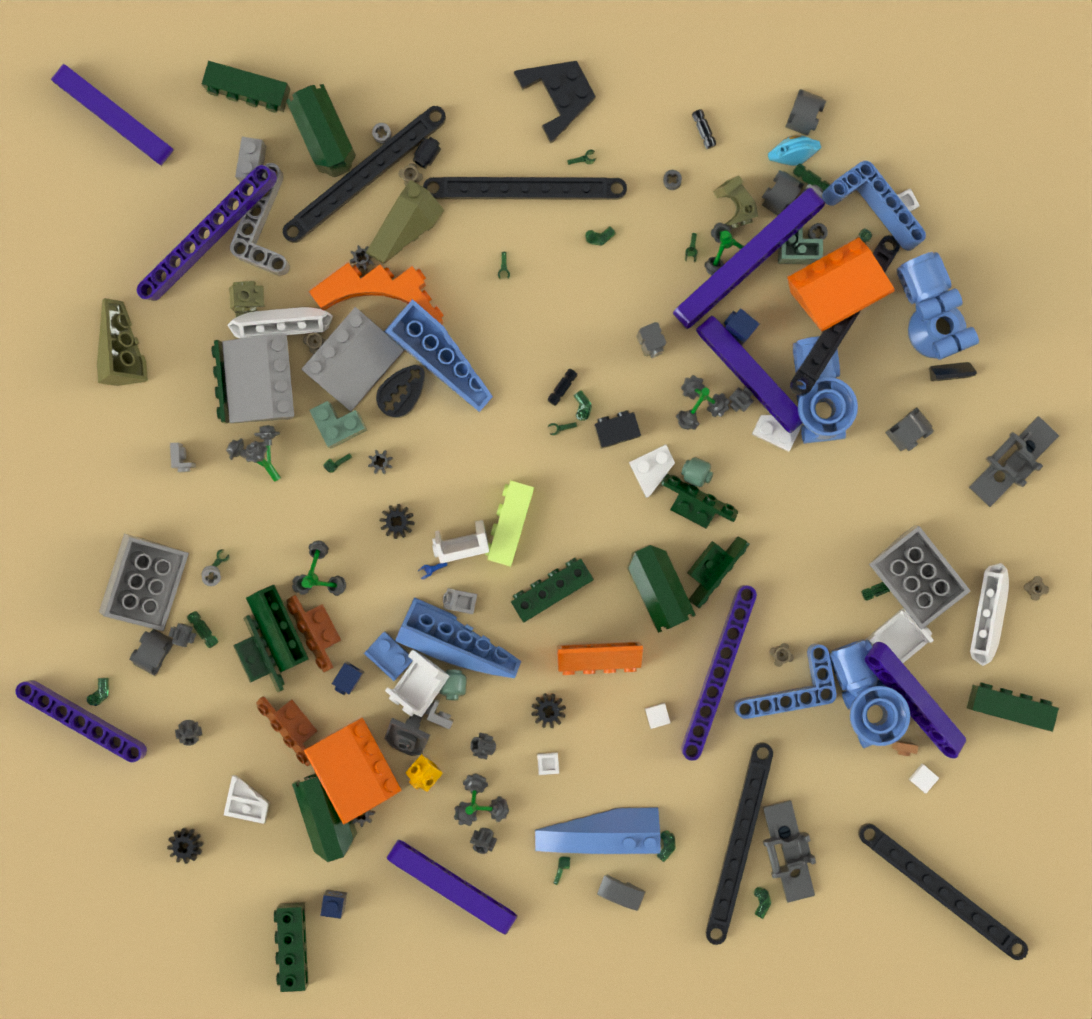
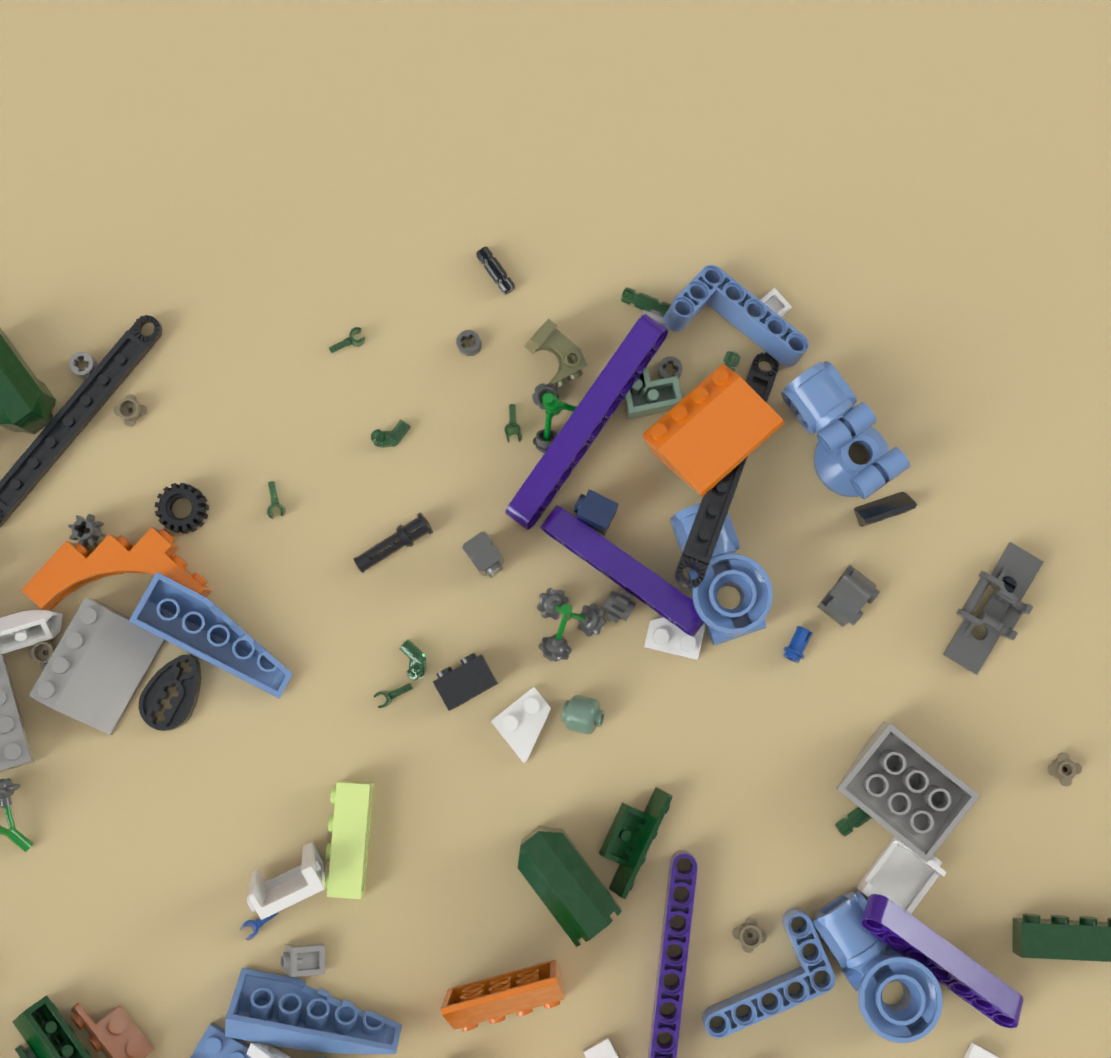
camera: 10 degrees left, 5 degrees down
(303, 583) = (91, 980): dark grey plant -> none
(331, 466) = (98, 814): clear green hand -> none
(335, 429) = (89, 763): sand green brick -> none
(375, 459) = (169, 796): dark grey gear -> none
(389, 524) = (187, 871): black gear -> none
(408, 219) = (134, 467): olive wedge -> none
(426, 152) = (144, 377): black brick -> none
(435, 244) = (166, 503): none -> black tyre
(527, 188) = (280, 395): black plate -> none
(552, 590) = (423, 917): dark green brick -> none
(562, 387) = (382, 641): black axle -> none
(566, 88) = (310, 259): black wing -> none
(594, 310) = (365, 561): none -> black pin
(695, 504) = (591, 757): dark green bracket -> none
(782, 193) = (612, 329): dark grey cylinder -> none
(794, 150) = (616, 272): medium azure hat -> none
(804, 112) = (618, 222): dark grey cylinder -> none
(865, 456) = (797, 645): none -> blue pin
(905, 748) = (947, 1027): medium nougat plate -> none
(990, 614) = (1012, 818): white brick -> none

